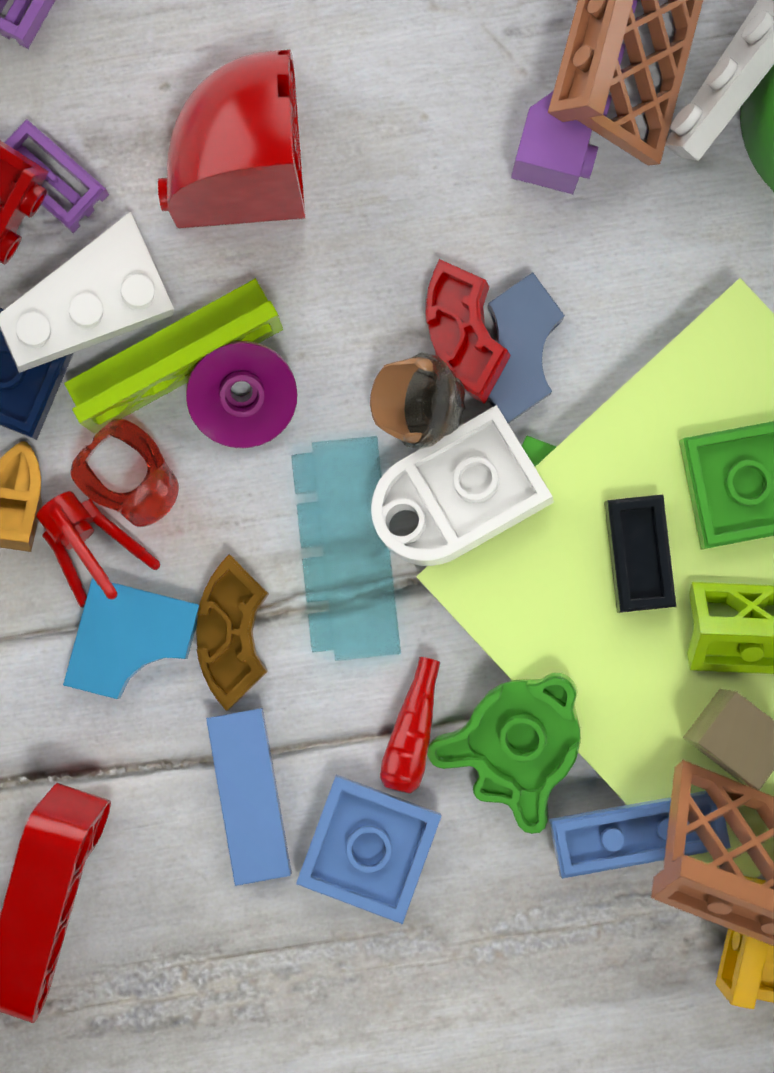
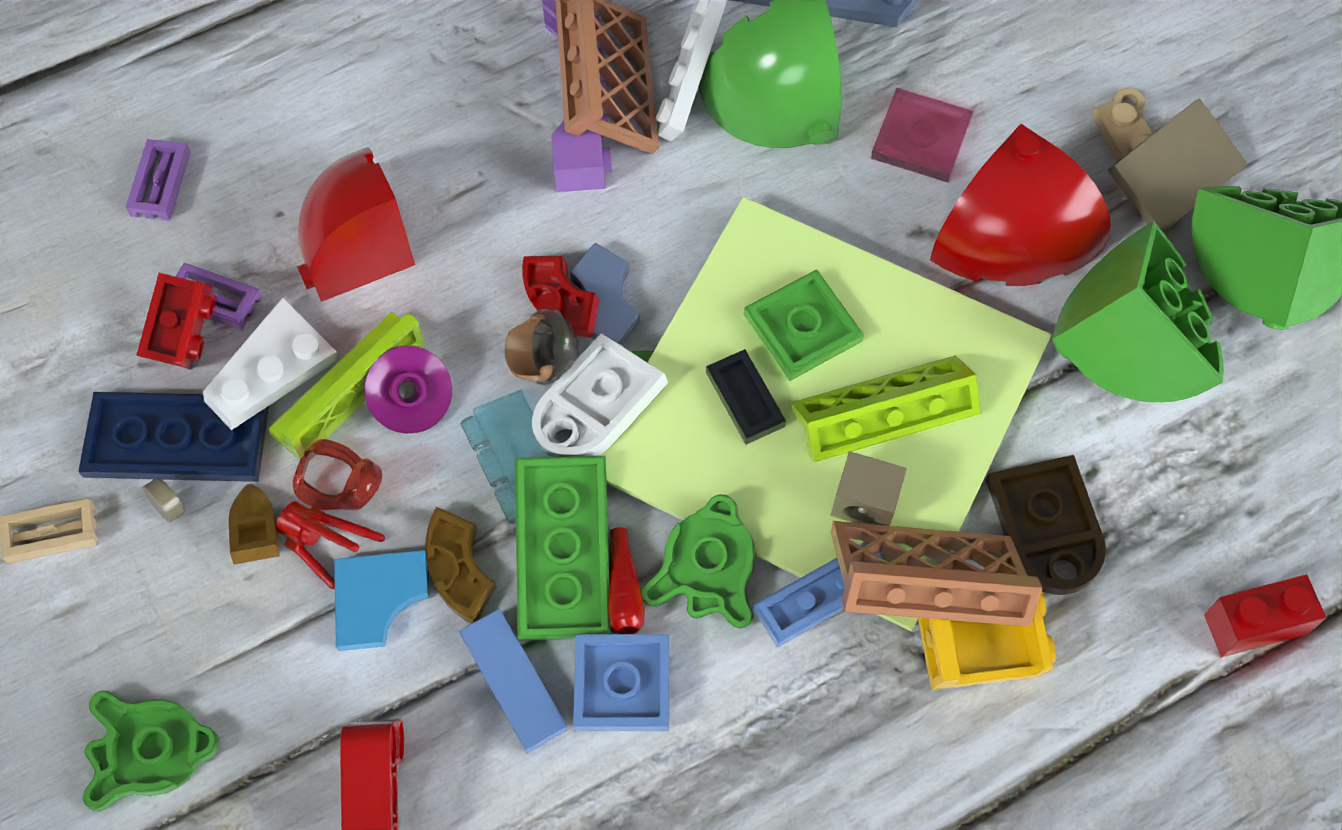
camera: 25 degrees left, 20 degrees down
(356, 662) = (561, 547): none -> bright green tile

